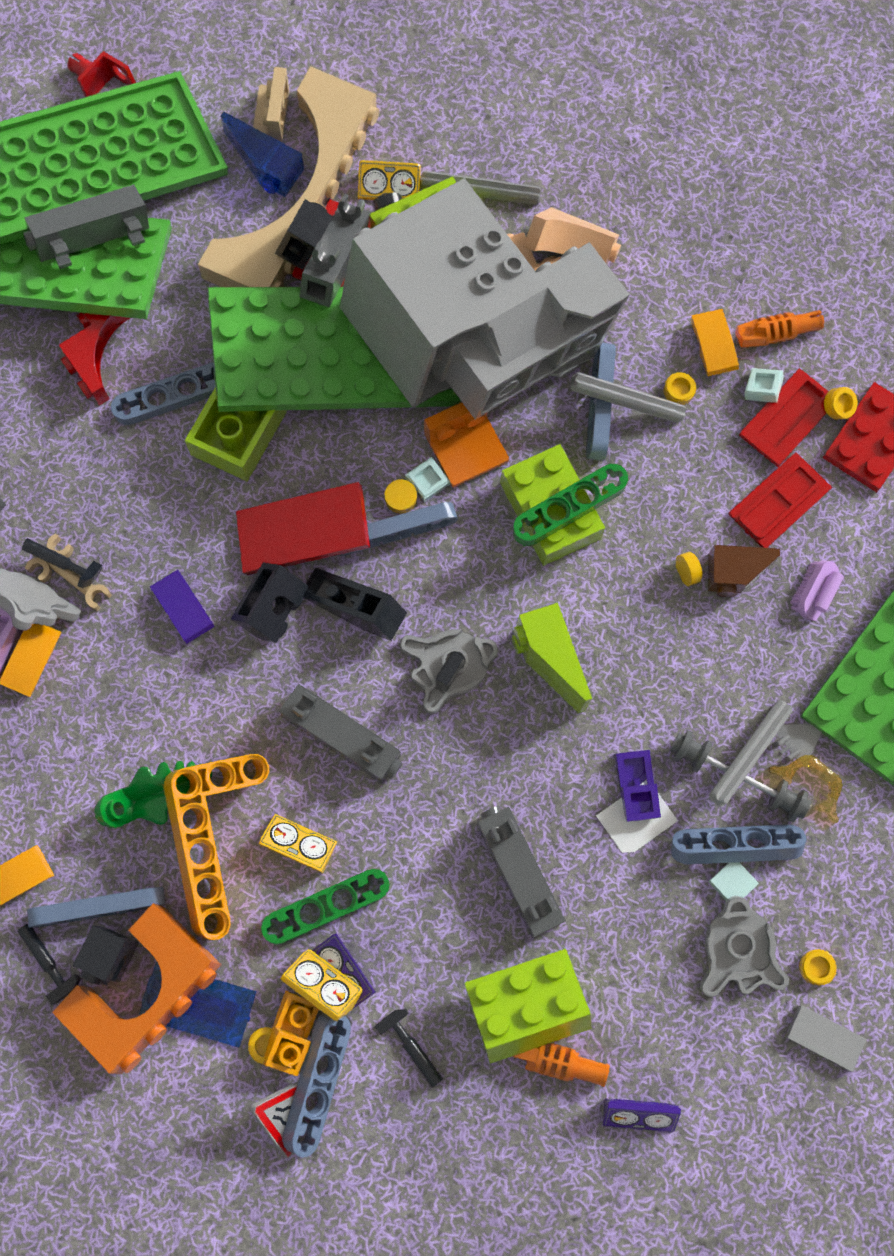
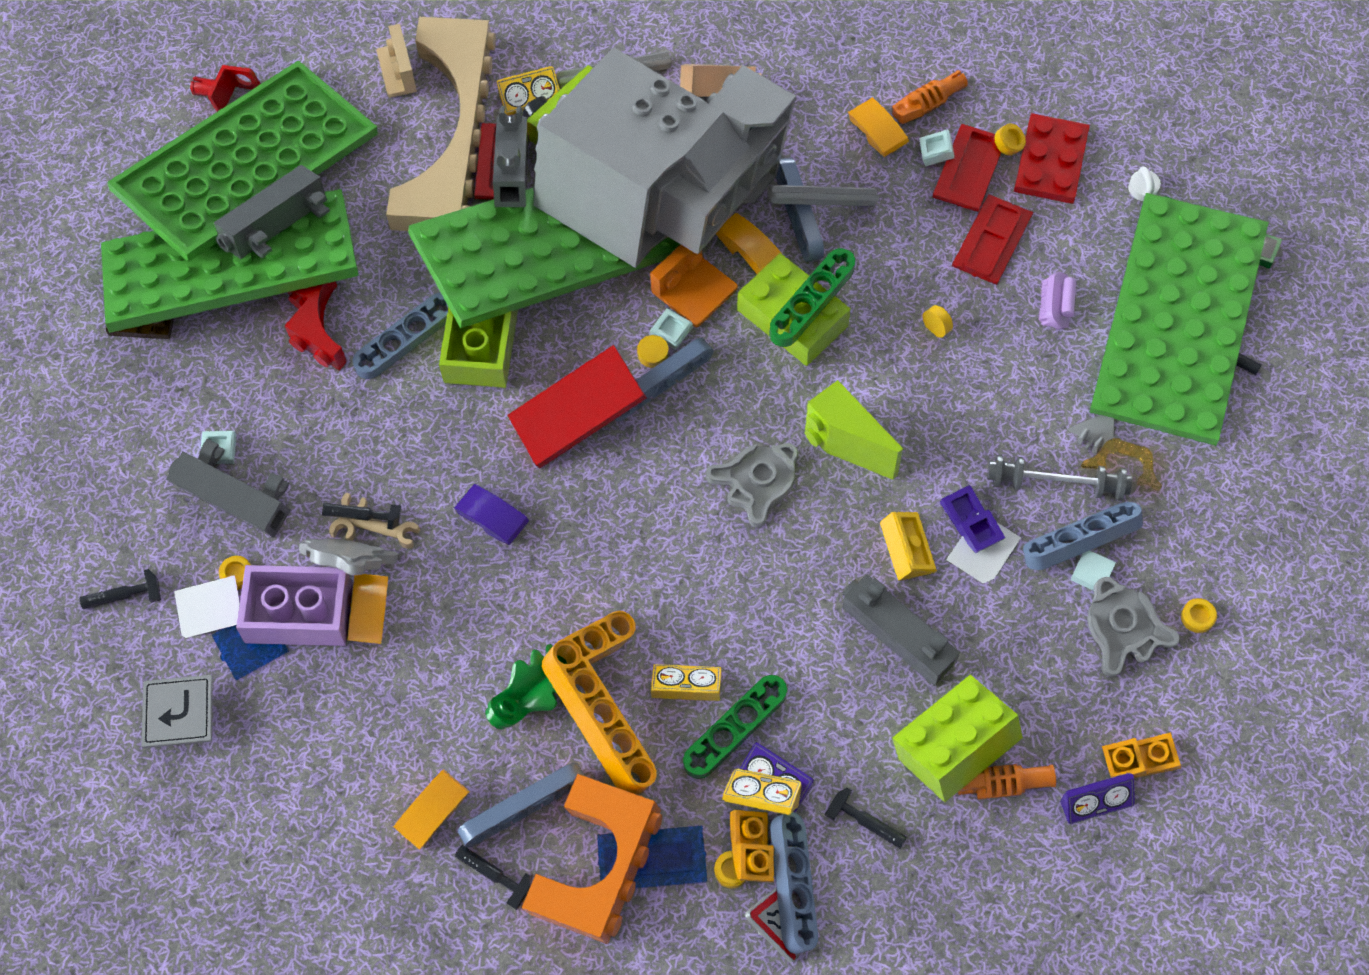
camera: 15 degrees left, 10 degrees down
(104, 955) = (551, 837): black brick -> none
(255, 608) = (580, 470): black brick -> none
(269, 160) = (409, 107): clear blue slope -> none
(304, 233) = (477, 153): black brick -> none
(341, 734) = (686, 570): dark grey brick -> none
(355, 603) = (651, 454): black slope -> none
(449, 671) = (763, 479): black tile -> none
(538, 418) = (752, 244): none -> light orange slope
(565, 787) = (907, 545): none -> yellow slope
(679, 388) = (863, 175): yellow tile -> none
(699, 1088) = (1142, 756): none -> light orange slope
(736, 567) = (979, 304): reddish brown slope -> none
(750, 753) = (1060, 454): light grey axle -> none
(825, 1038) = (1232, 673): light grey tile -> none

